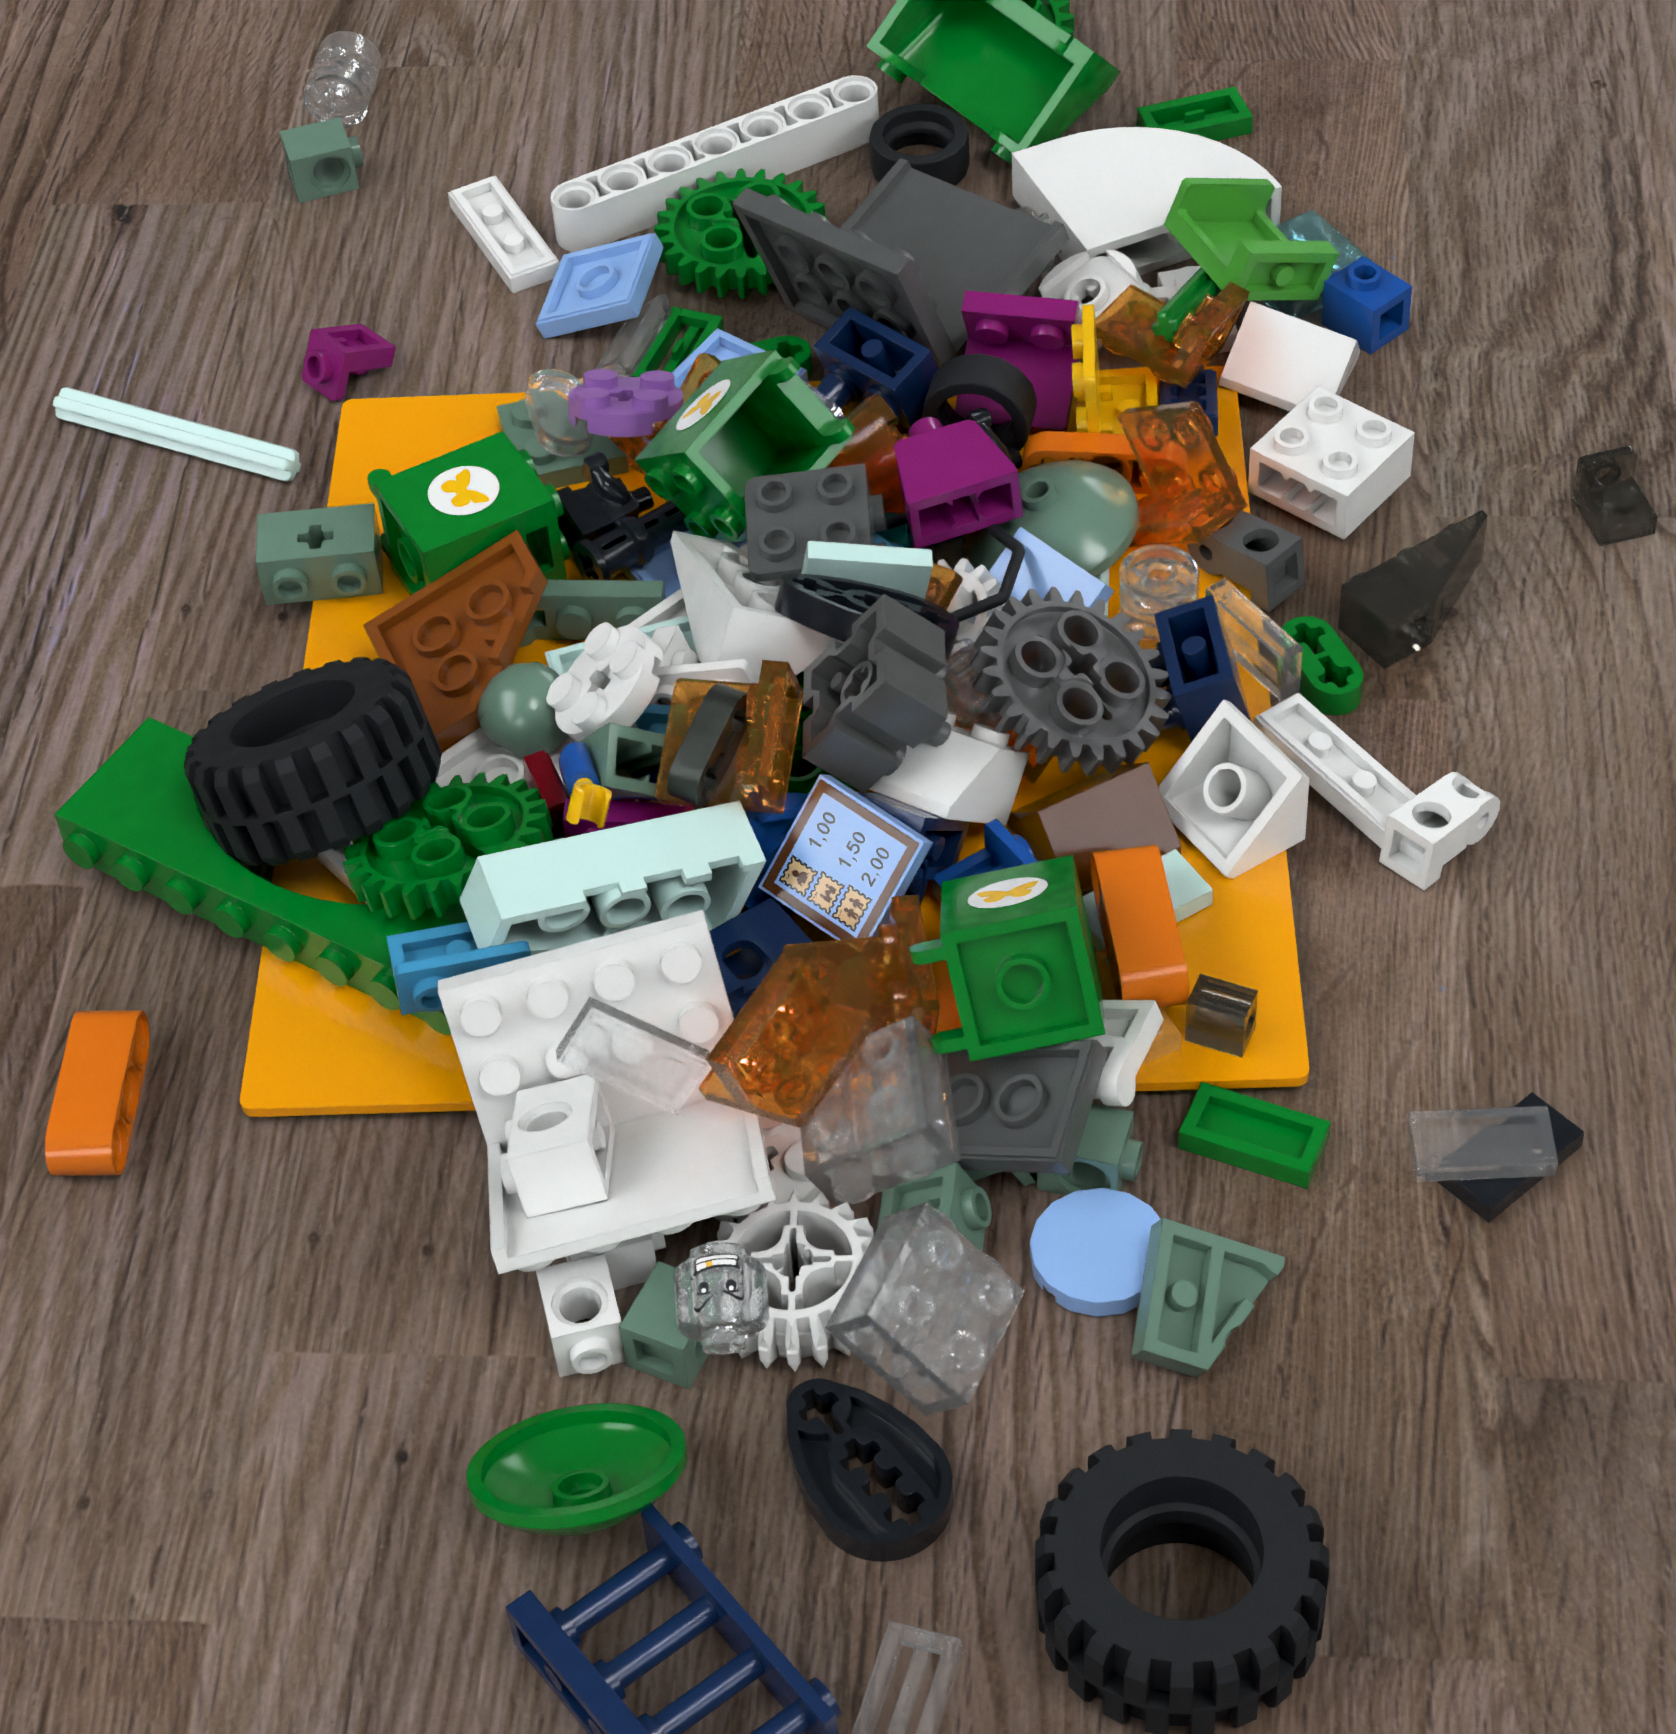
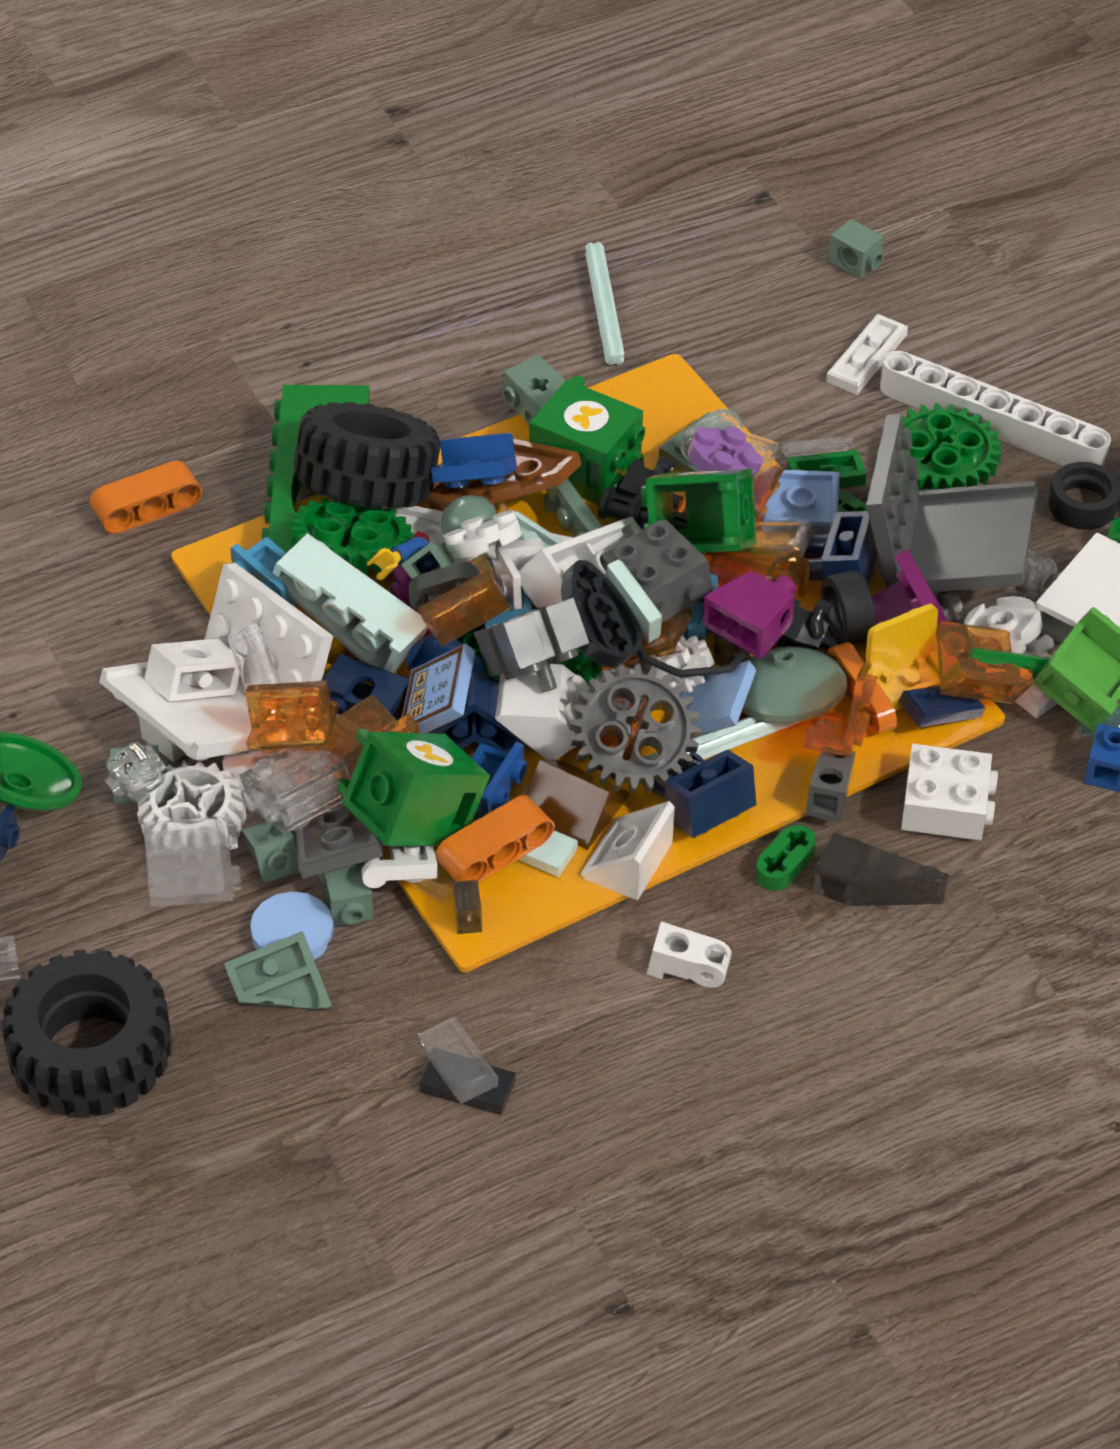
camera: 55 degrees right, 0 degrees up
(342, 78) = (927, 224): clear wheel -> none
(343, 351) = (710, 333): magenta bracket -> none
(441, 639) = (475, 458): none -> blue bracket
(576, 1293) = (117, 731): white brick -> none
(600, 285) = (845, 410): light blue tile -> none
(841, 1496) = (115, 902): black piece -> none
(1152, 582) = (760, 744): clear wheel -> none
(1254, 1135) = (412, 963): green tile -> none
(1258, 641) = (762, 809): clear tile -> none
(1286, 358) = (1028, 740): white slope -> none
(1334, 764) = (706, 886): white tile -> none
(1611, 497) = (1033, 944): clear smoke bracket -> none

